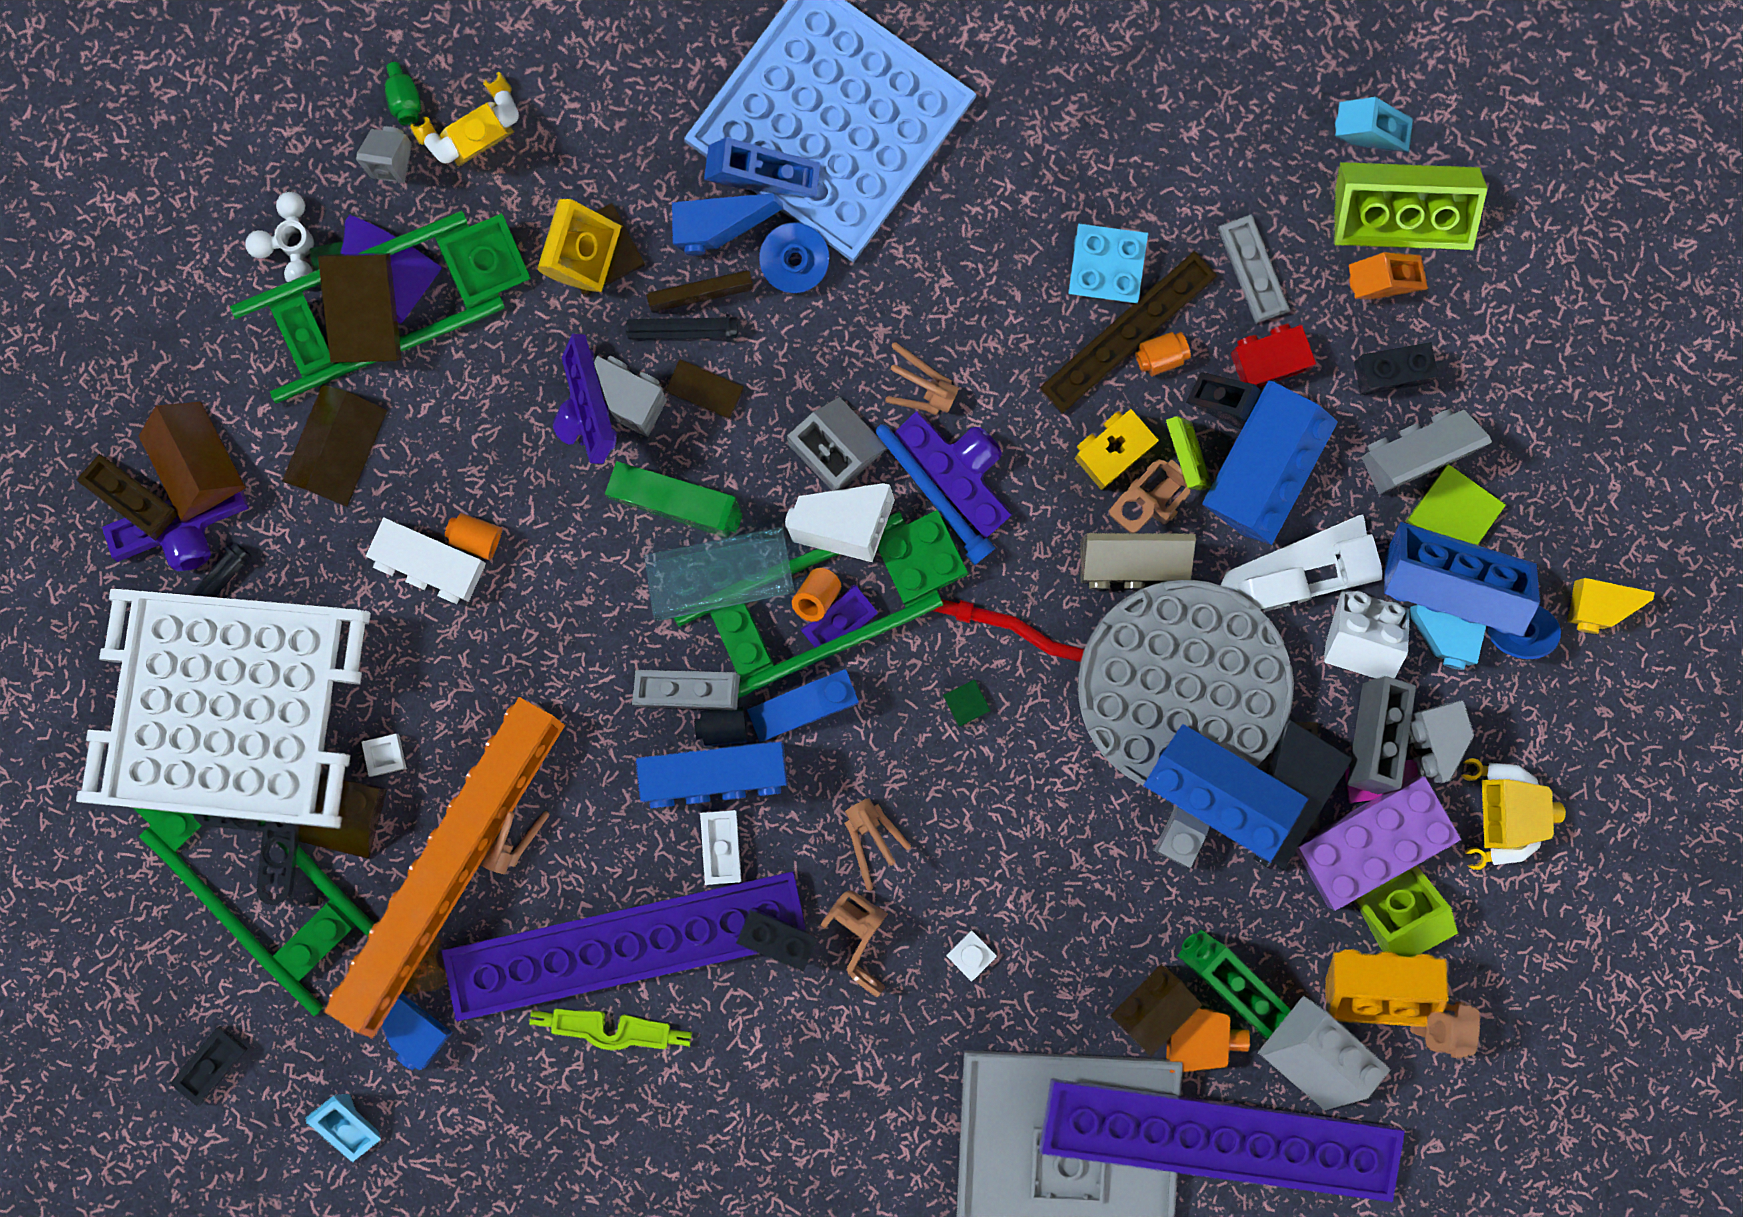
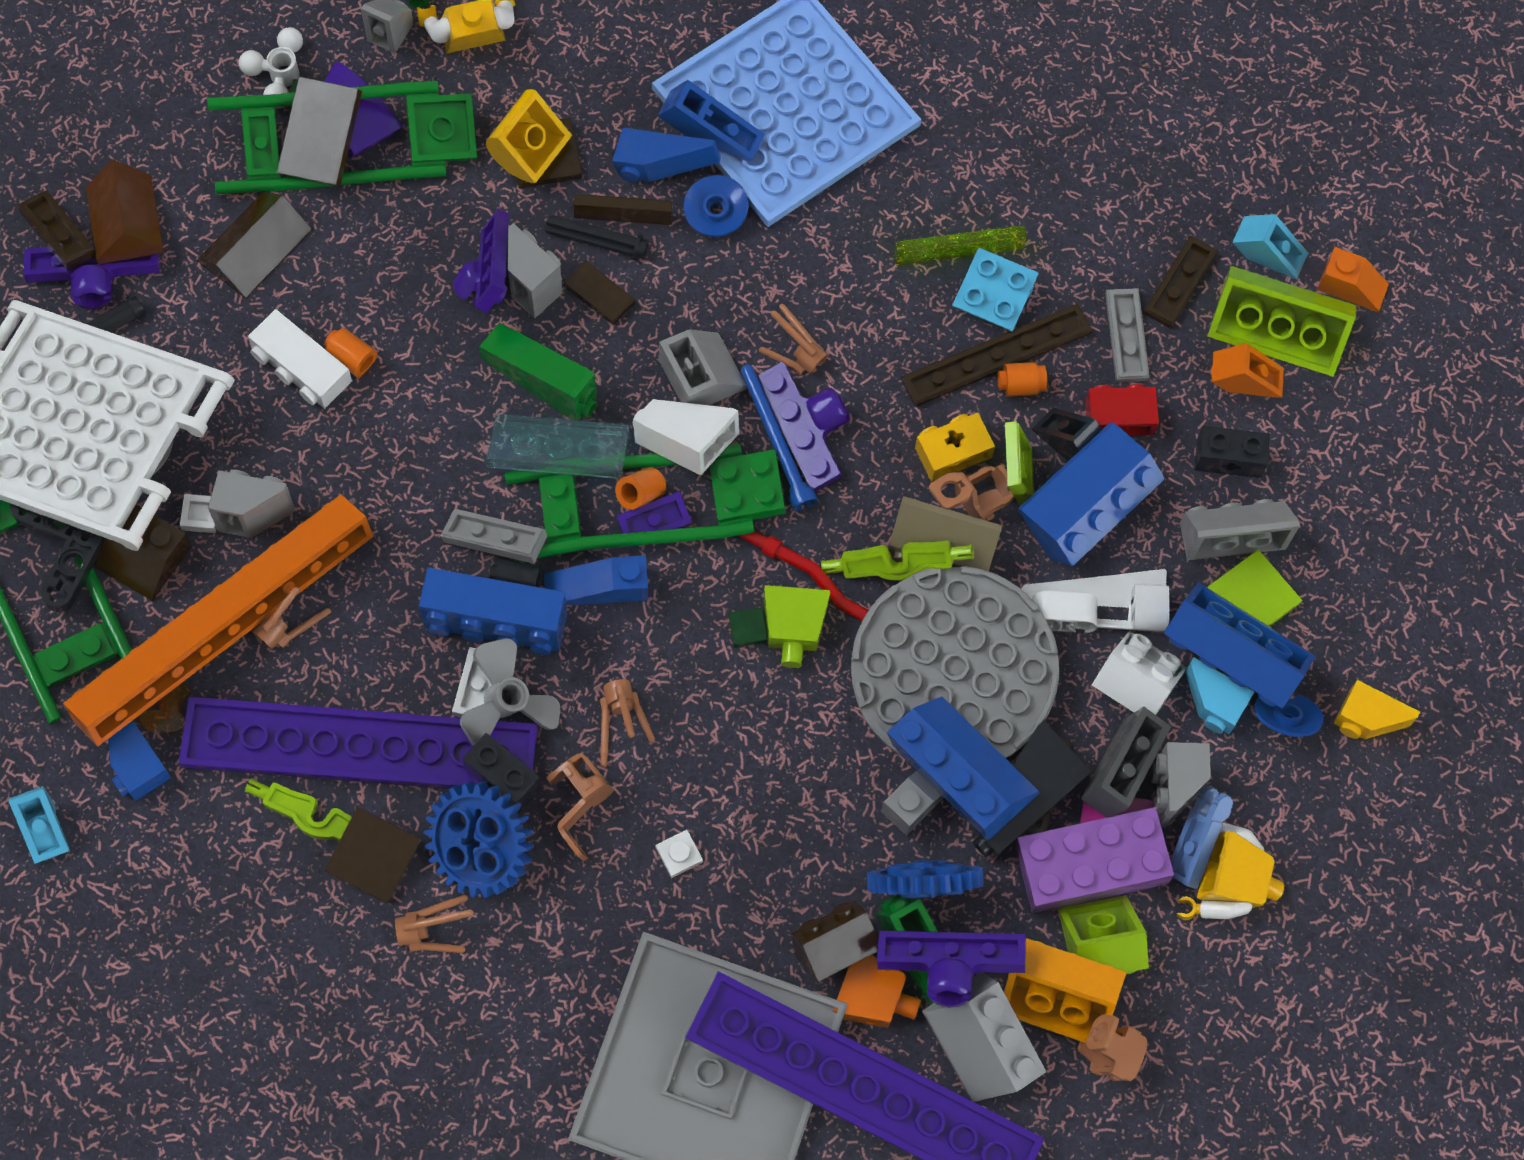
camera: 15 degrees right, 15 degrees down
(428, 739) = (248, 504): none -> light grey slope
(677, 1053) = (372, 854): none -> dark brown tile
(736, 827) = (498, 664): none -> light grey piece
(742, 1113) = (413, 926): none -> nougat plant
(776, 1011) = (478, 839): none -> blue gear
(1012, 685) = (794, 620): none -> lime torso
(1057, 224) = (959, 245): none -> clear neon green tile
(1114, 587) = (915, 556): none -> lime piece
(1223, 921) = (925, 879): none -> blue gear
(1276, 1003) = (951, 959): none -> dark purple plate
(1292, 192) = (1180, 282): none -> dark brown tile
(1467, 138) = (1353, 280): none -> orange slope
(1473, 790) = (1200, 836): none -> medium blue hinge

